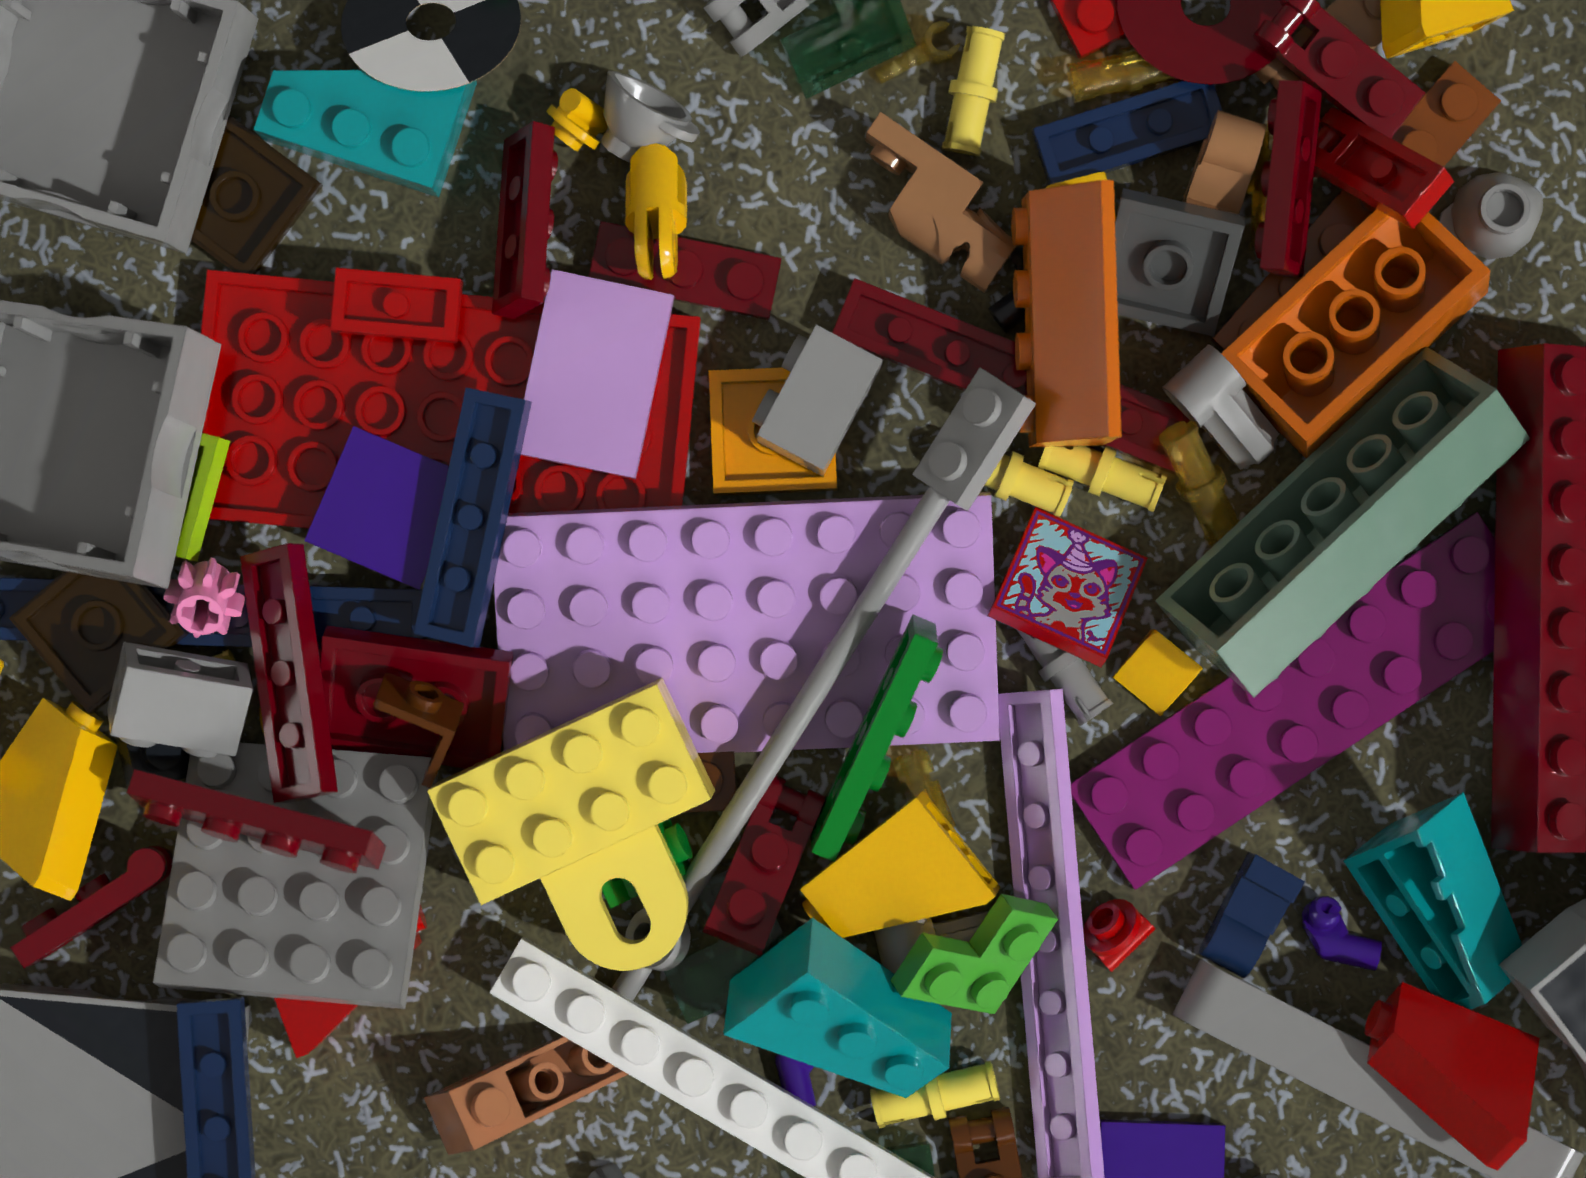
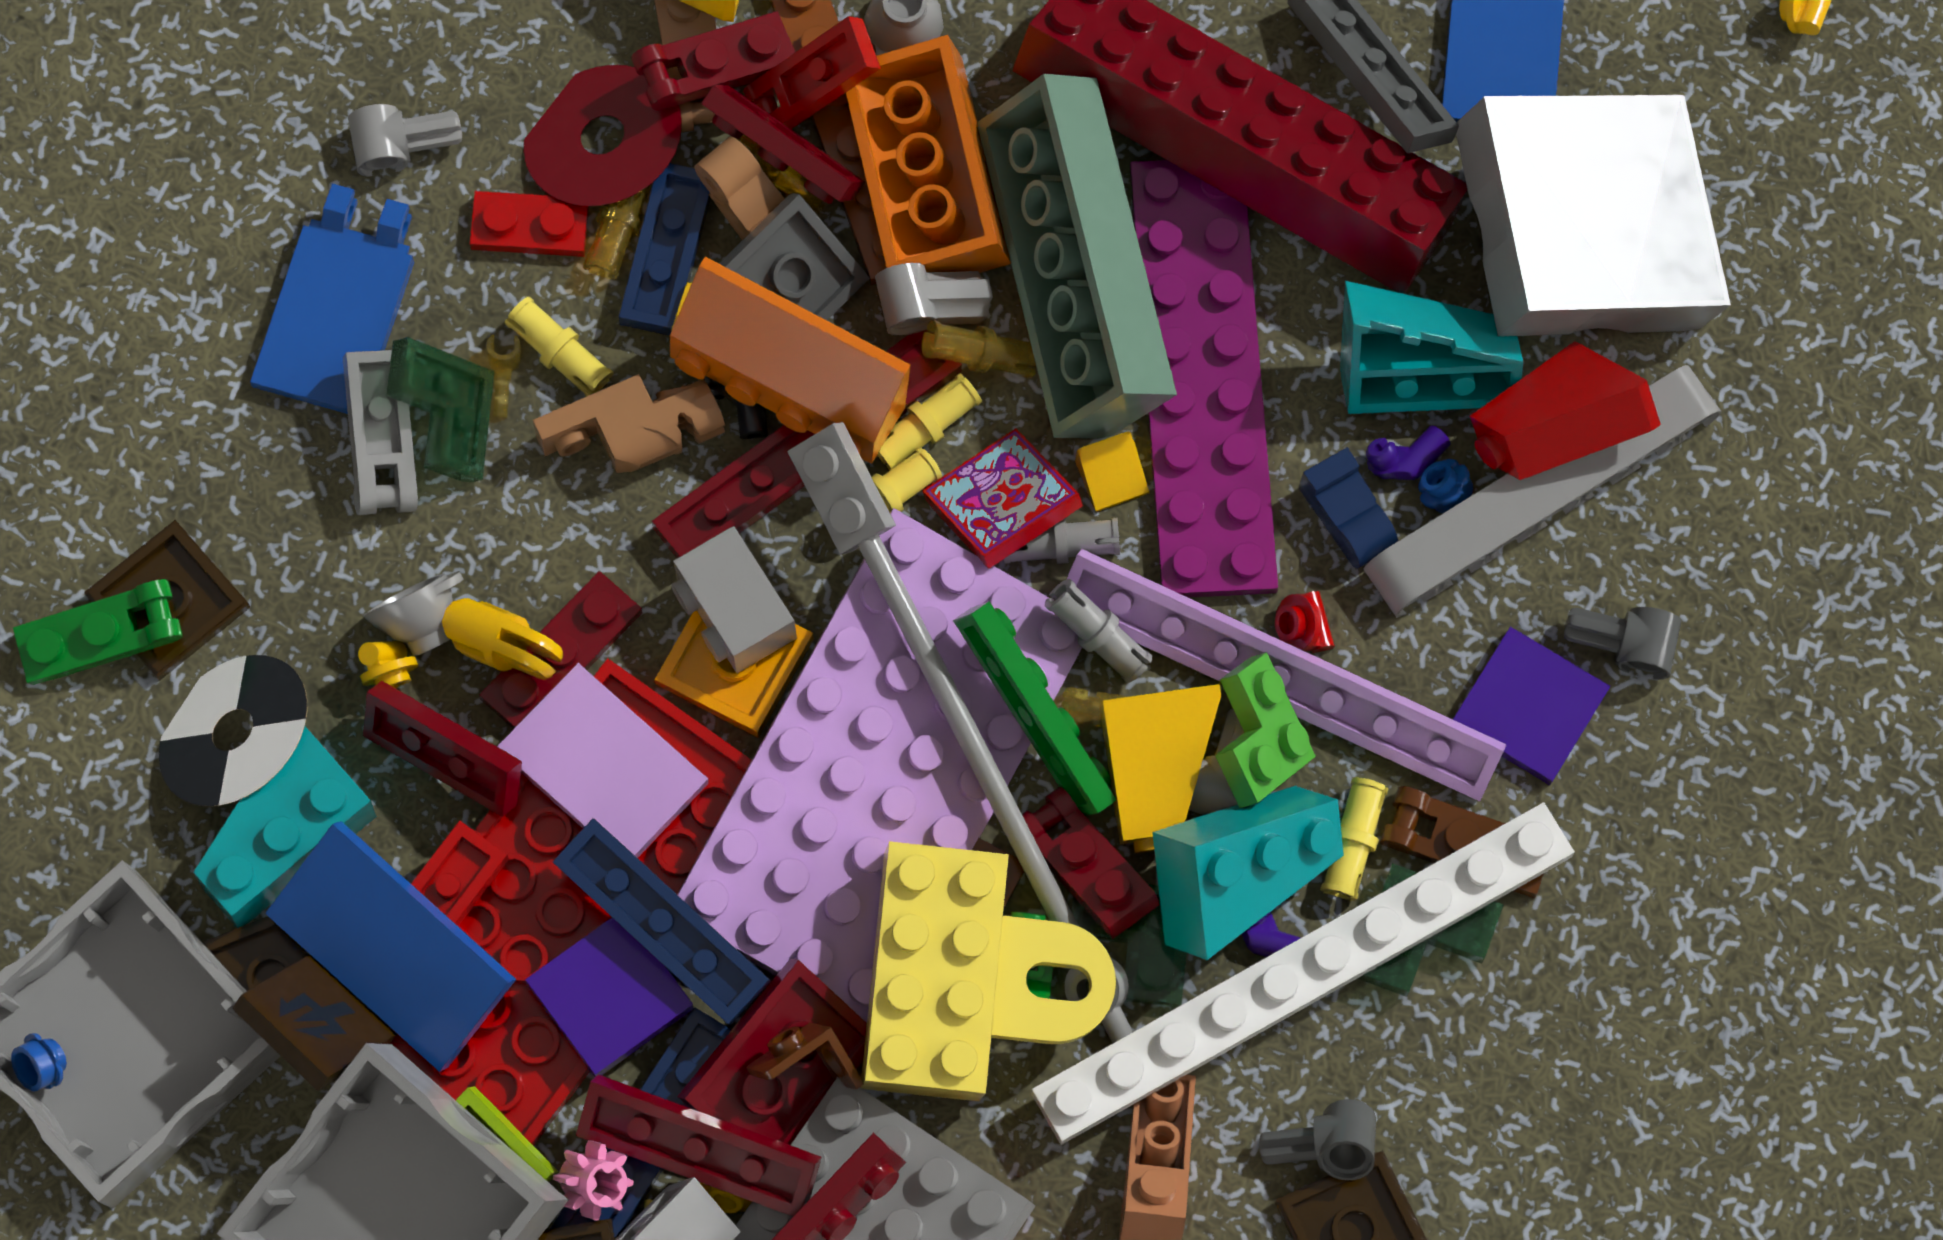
camera: 65 degrees left, 15 degrees down
(33, 42) = (38, 1063): none -> blue plate
(196, 264) = (311, 1020): none -> dark brown tile
(308, 287) = (390, 946): none -> blue tile
(990, 749) = (1098, 630): none -> light grey pin
(1323, 1001) = (1445, 485): none -> blue plate

